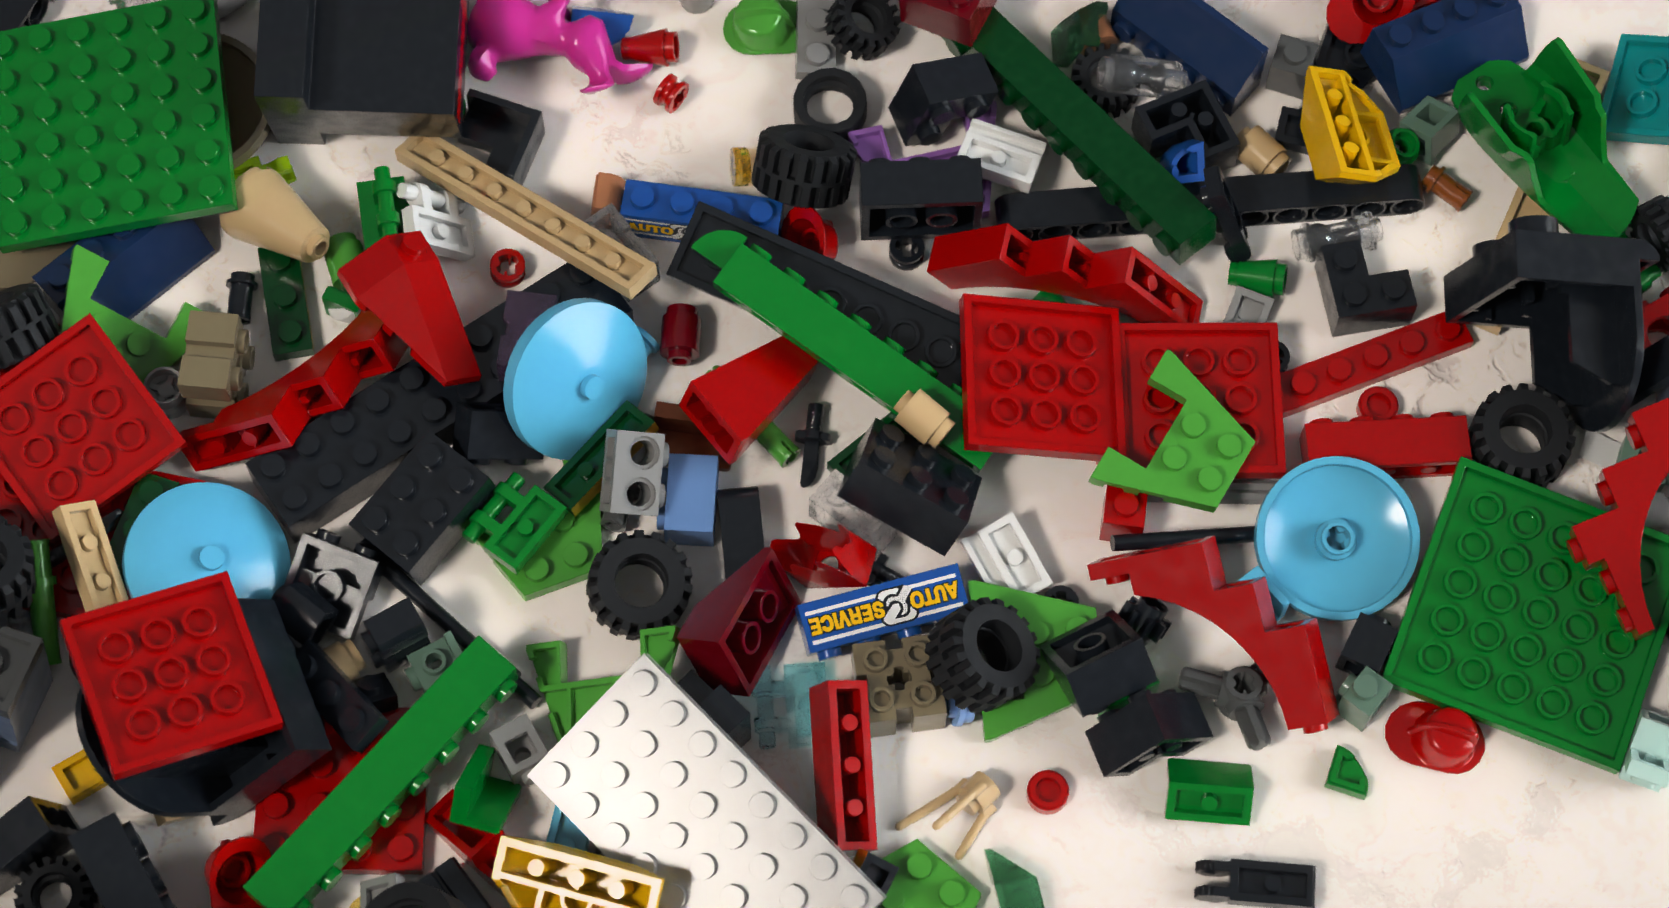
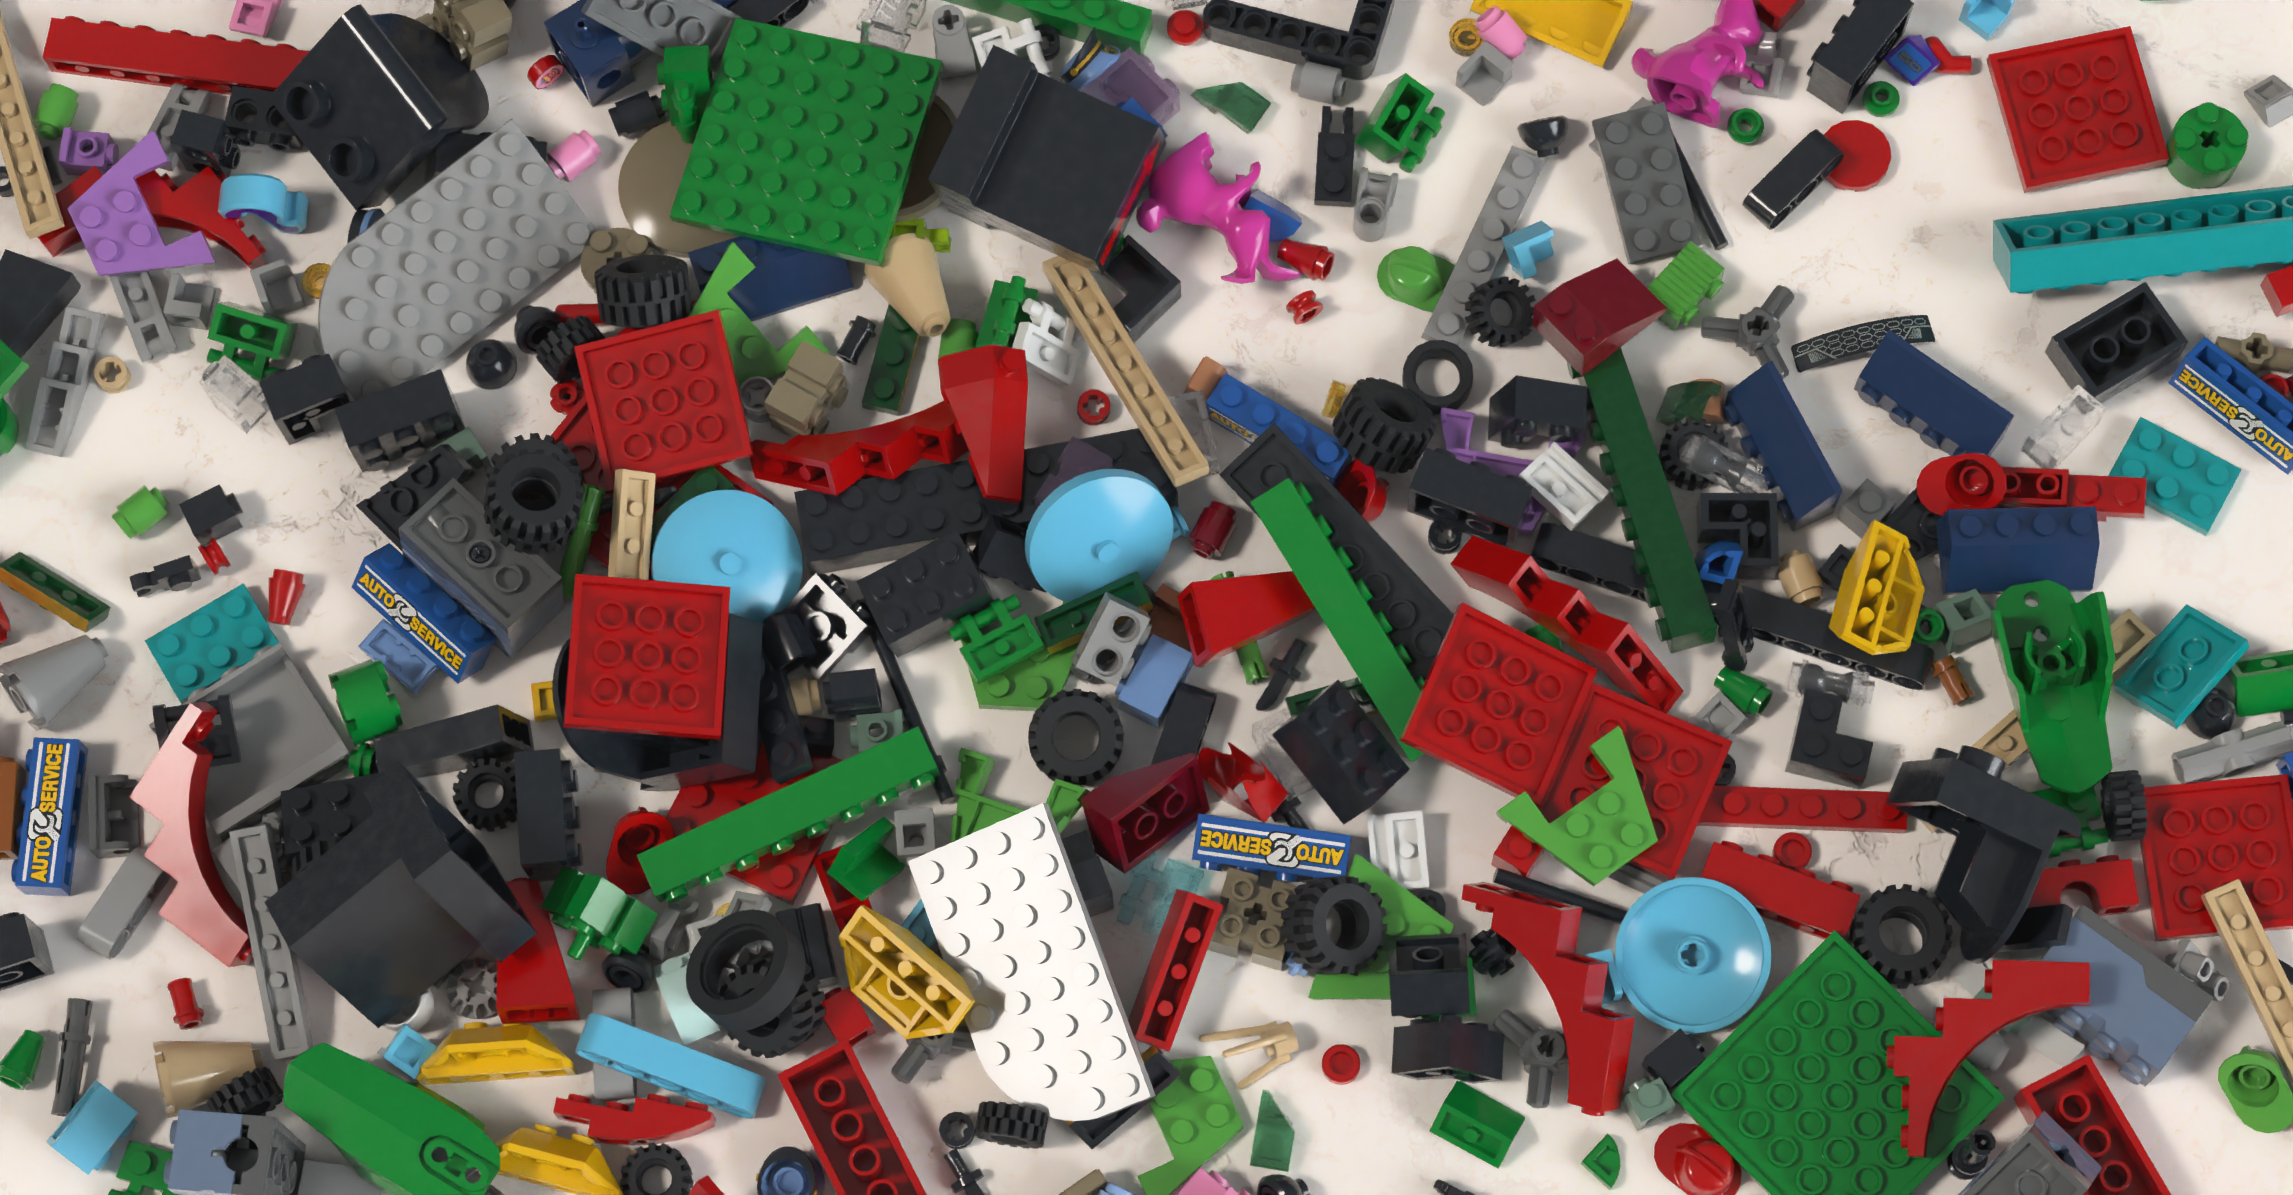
camera: 30 degrees right, 5 degrees up
(339, 305) = (932, 381): green tile -> none
(718, 246) = (1272, 470): green tile -> none
(923, 417) = (1377, 697): tan brick -> none

